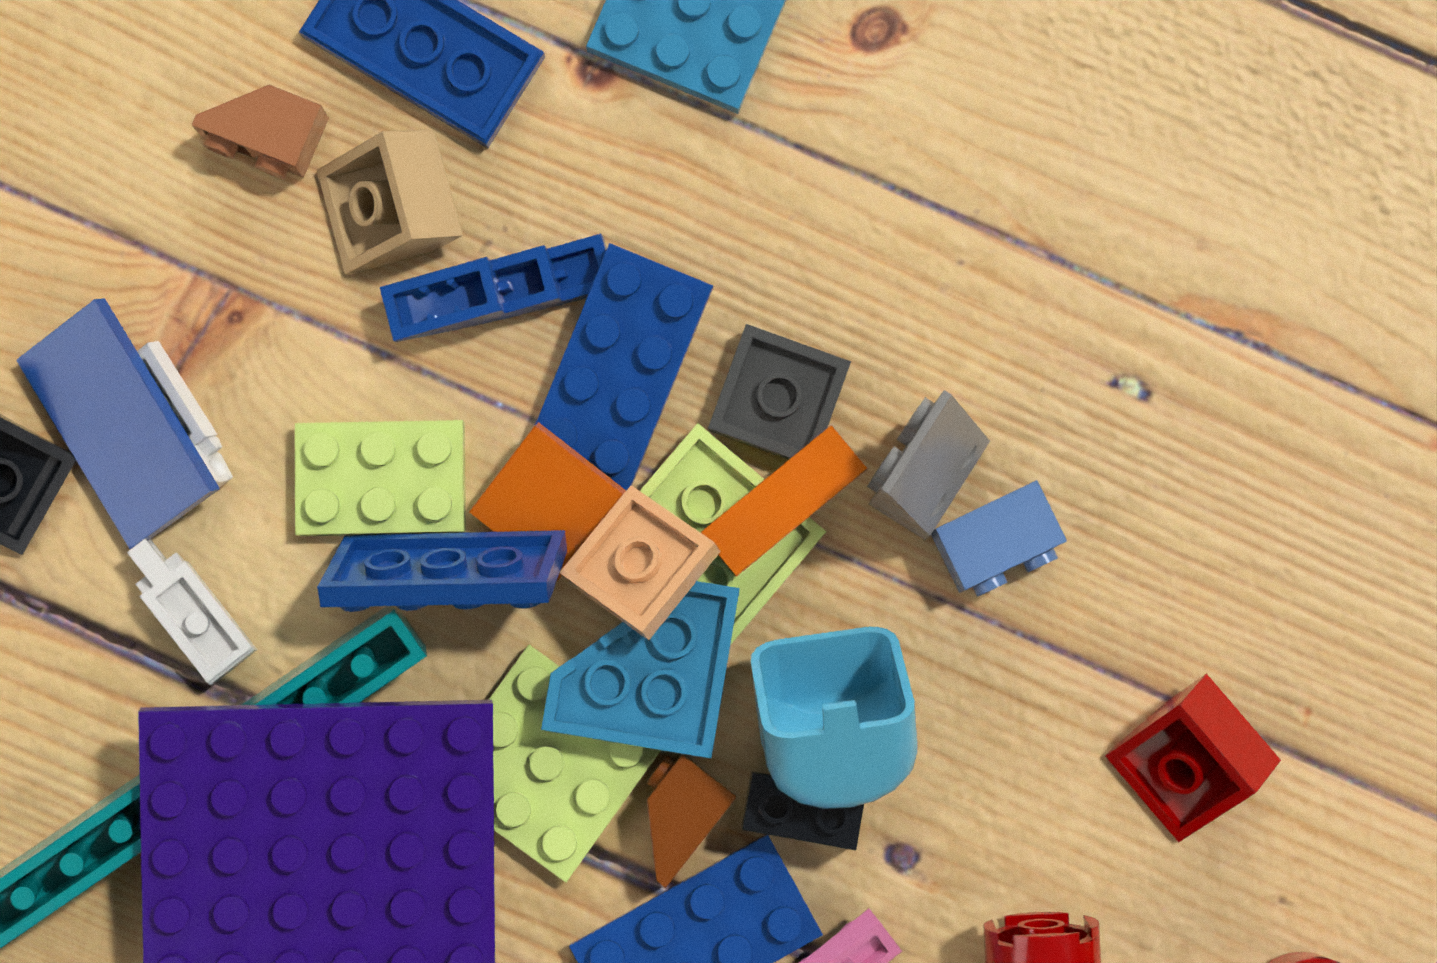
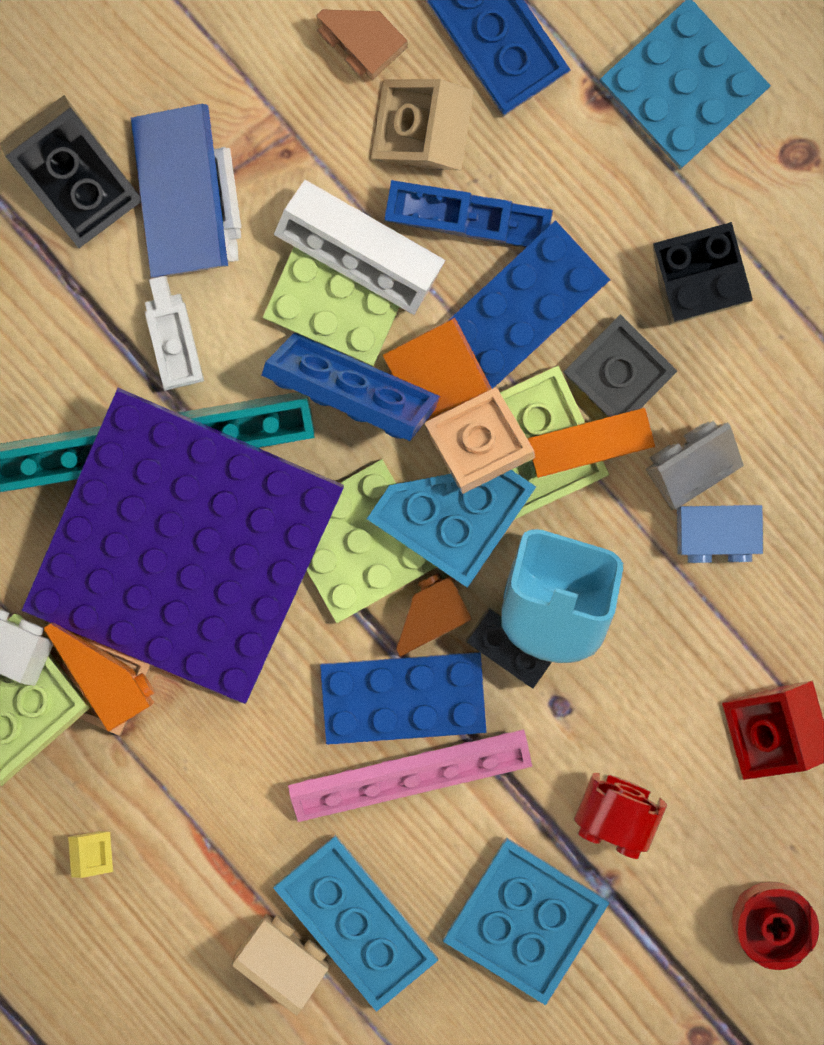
camera: 30 degrees right, 5 degrees up
(376, 389) = (359, 247): none -> white brick
(823, 227) = (701, 273): none -> black slope

